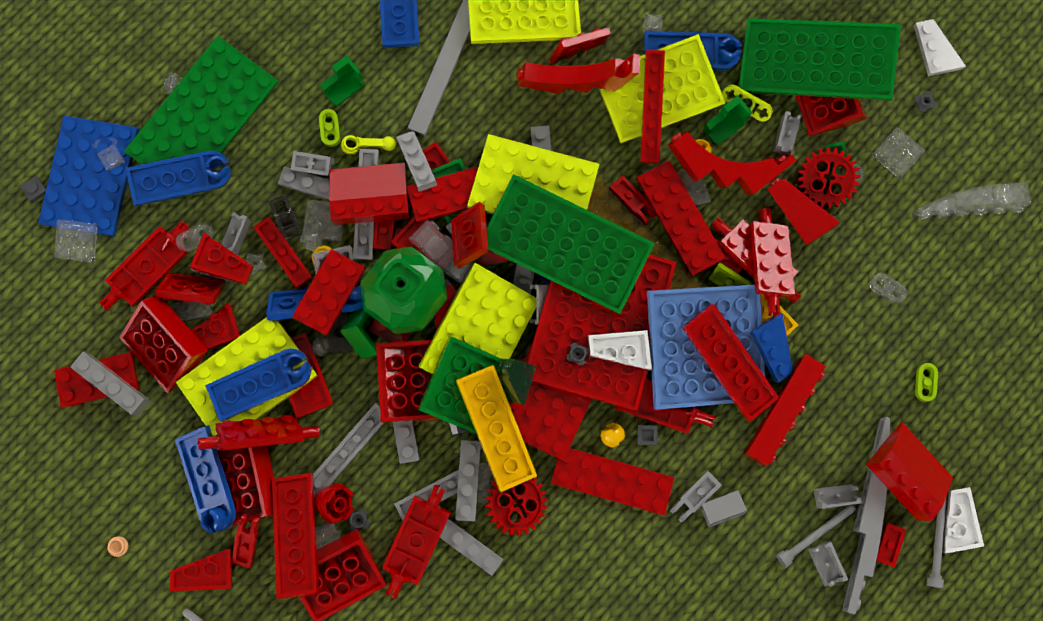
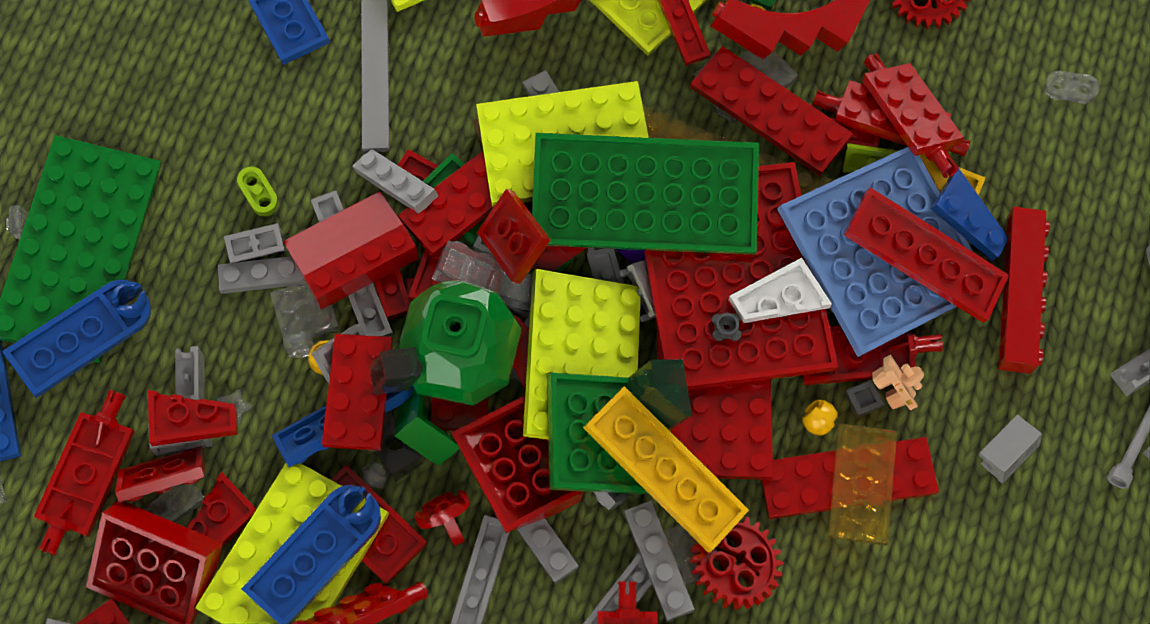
camera: 20 degrees left, 10 degrees down
(193, 237) = (133, 407): clear plate -> none
(283, 252) = (267, 375): red plate -> none
(285, 217) = (251, 326): clear smoke brick -> none
(344, 82) = (252, 124): green panel -> none
(350, 390) = (443, 511): none -> red tile
(354, 293) = (395, 370): none -> clear smoke brick
(387, 143) = (343, 180): neon yellow piece -> none
(617, 491) = (862, 484): none -> clear yellow plate
(632, 199) = (698, 114): red hinge -> none
(675, 437) = (903, 381): none -> light nougat hips
(697, 495) = (967, 446): light grey hinge -> none
(803, 213) = (920, 39): red slope -> none

